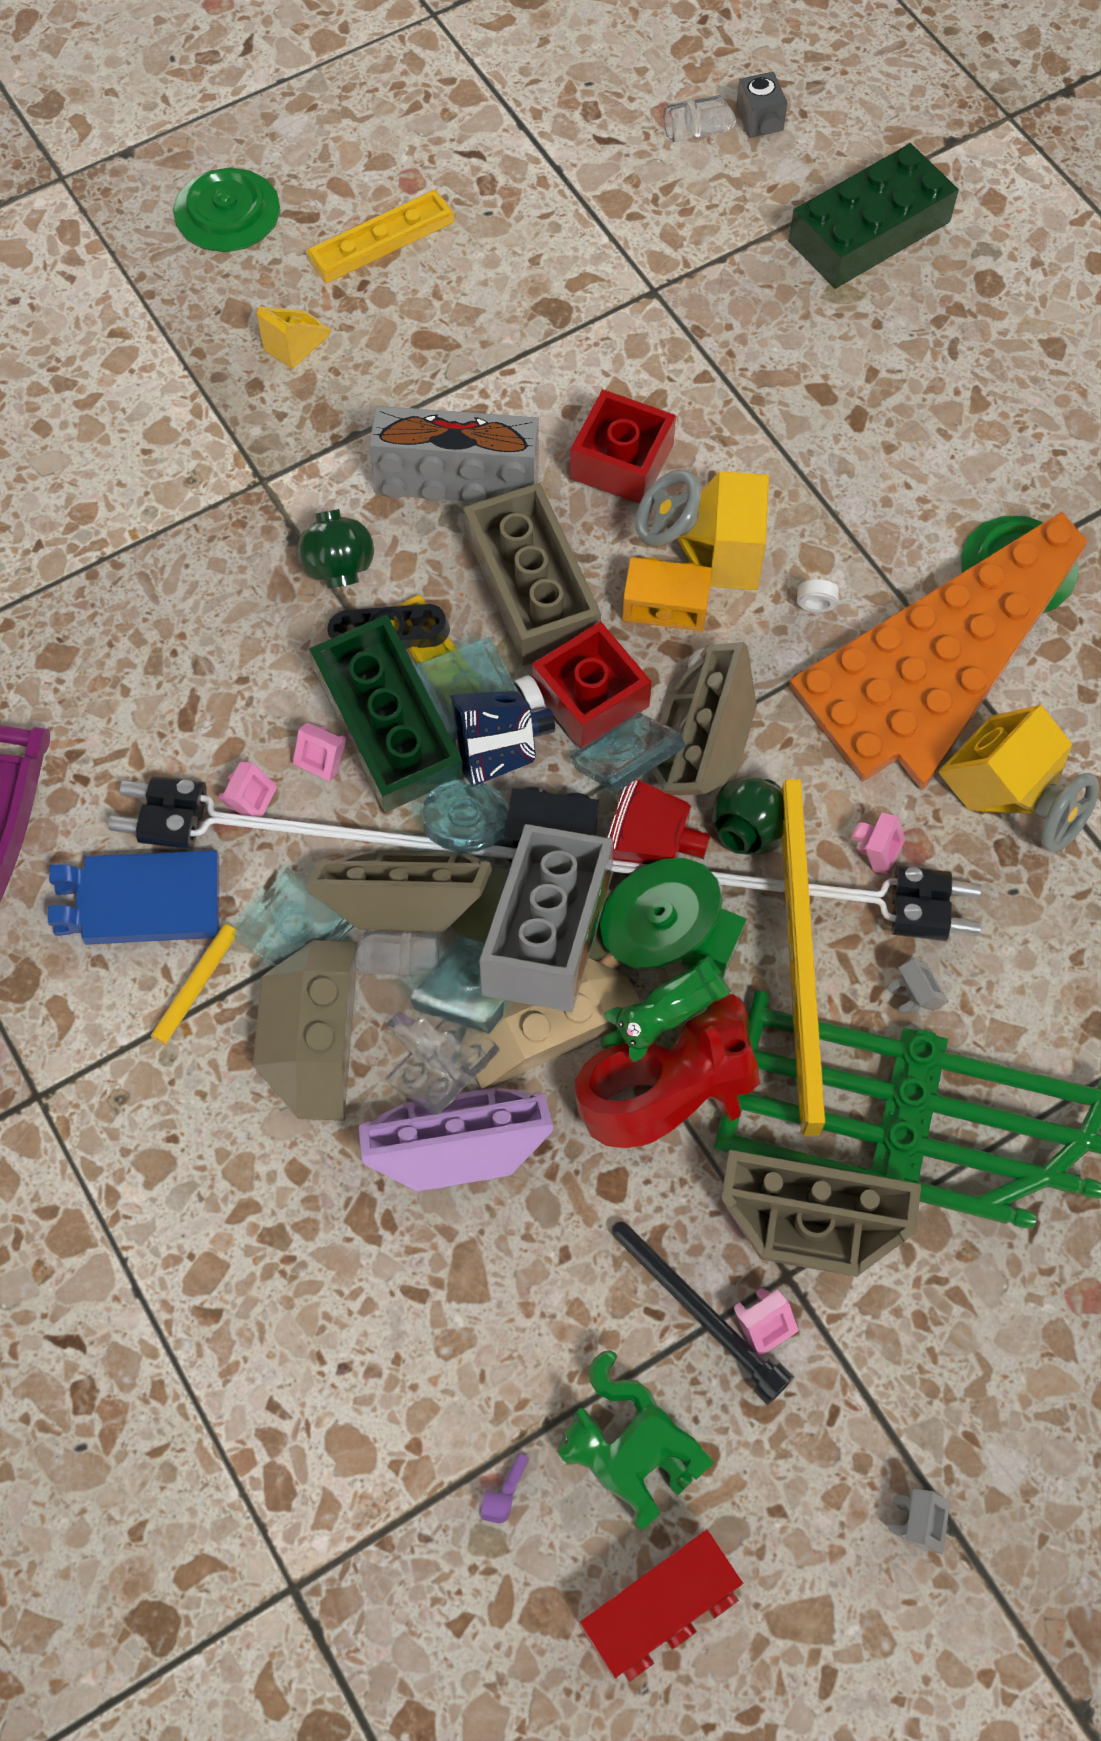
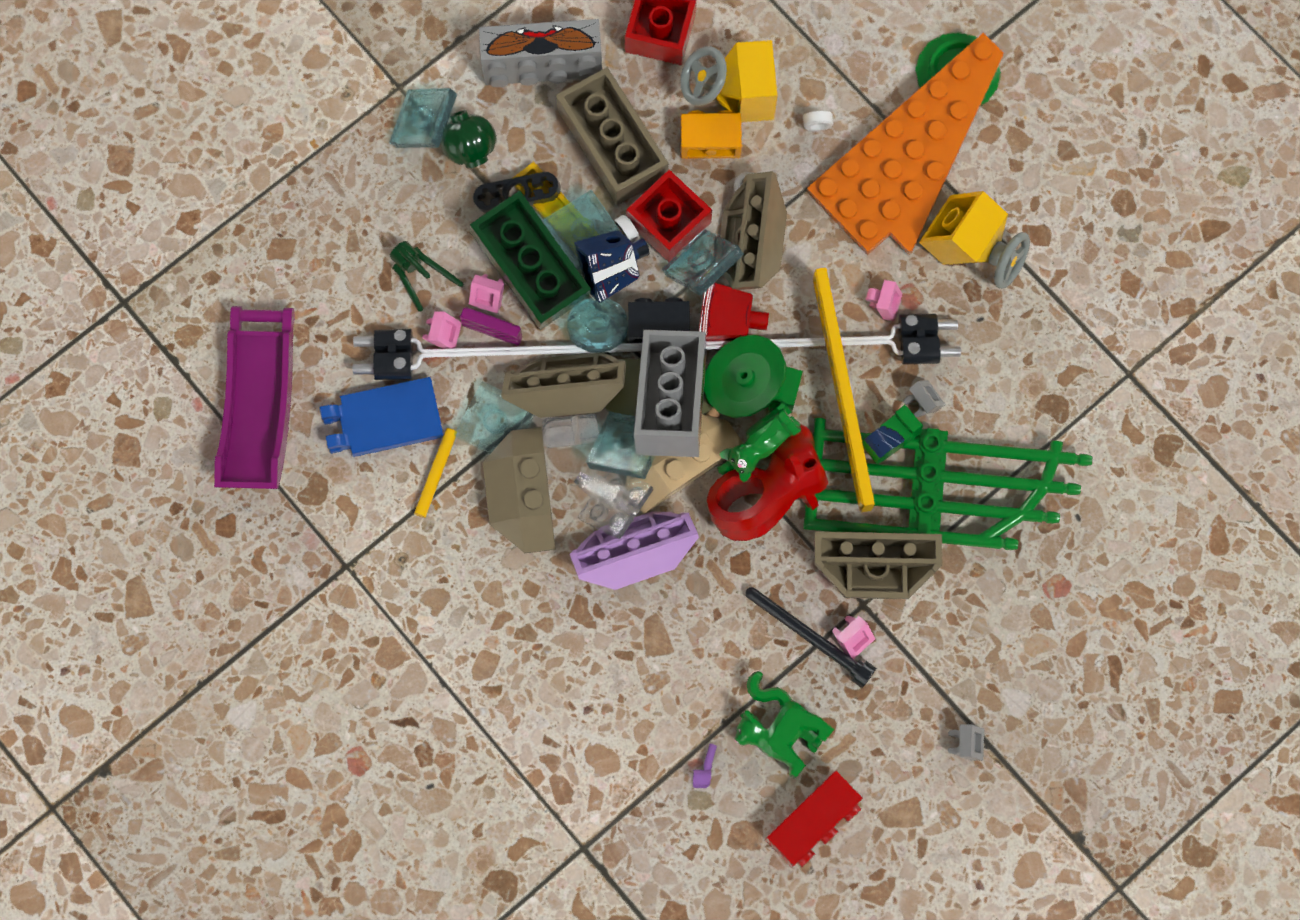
camera: 10 degrees left, 10 degrees up
(223, 693) = (409, 259): none -> dark green plant
(282, 516) = (423, 118): none -> clear light blue tile
(316, 795) = (491, 326): none -> magenta tile
(749, 815) = (793, 294): dark green plant -> none
(866, 1028) = (892, 435): none -> leg

